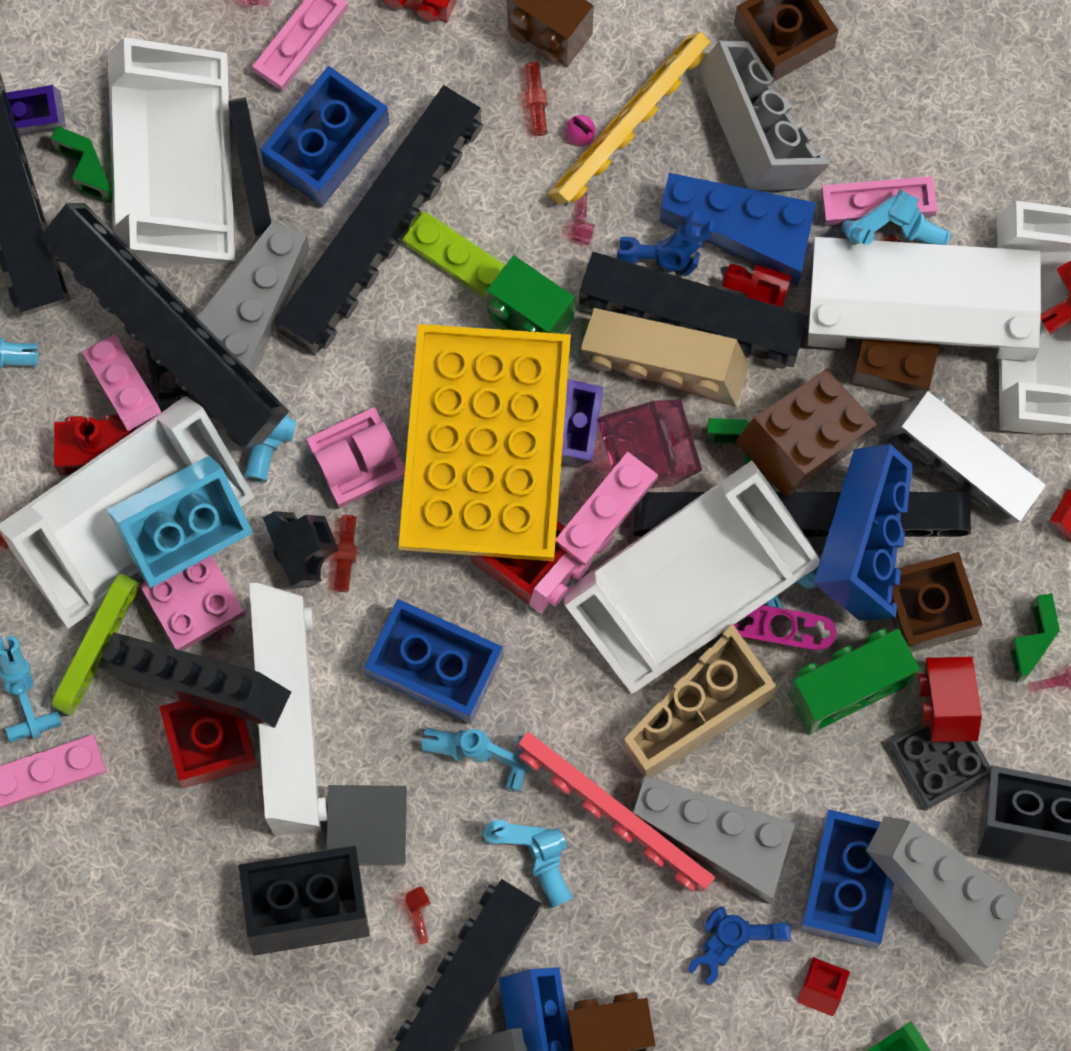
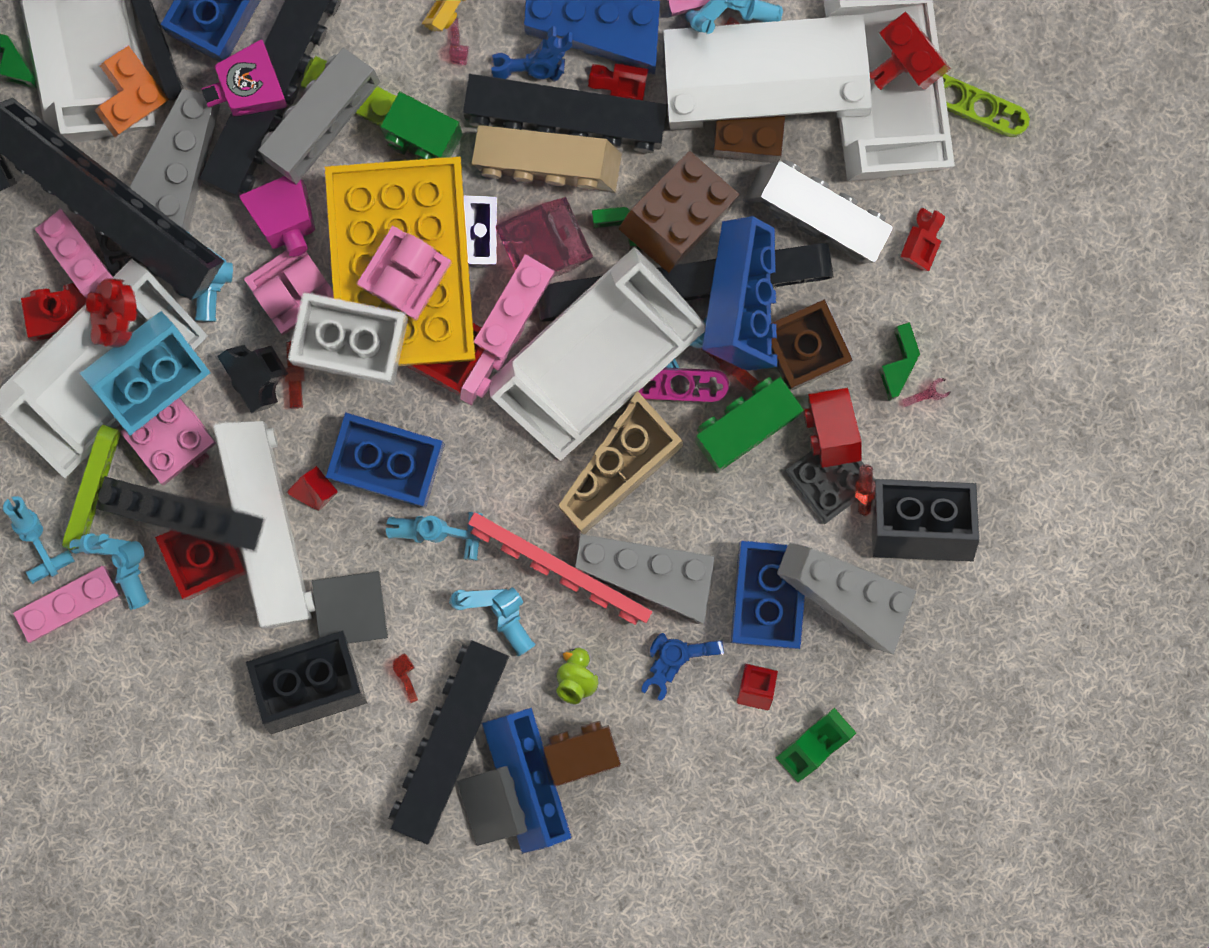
camera: 10 degrees left, 10 degrees up
(120, 727) = (125, 556): none -> medium azure pin
(153, 447) = (111, 311): none -> red plate
(220, 219) = (137, 93): none -> orange plate
(345, 224) = (246, 82): none -> dark pink torso
(346, 683) = (313, 489): none -> red slope
(360, 372) = (282, 213): none -> dark pink torso
(416, 511) = (348, 338): none -> white brick
(419, 271) = (319, 115): none -> light grey brick
(490, 449) = (404, 272): none -> bright pink plate
(614, 943) = (573, 677): none -> lime animal
(841, 617) = (740, 374): none -> clear red bar
(978, 774) = (865, 489): none -> clear red bar

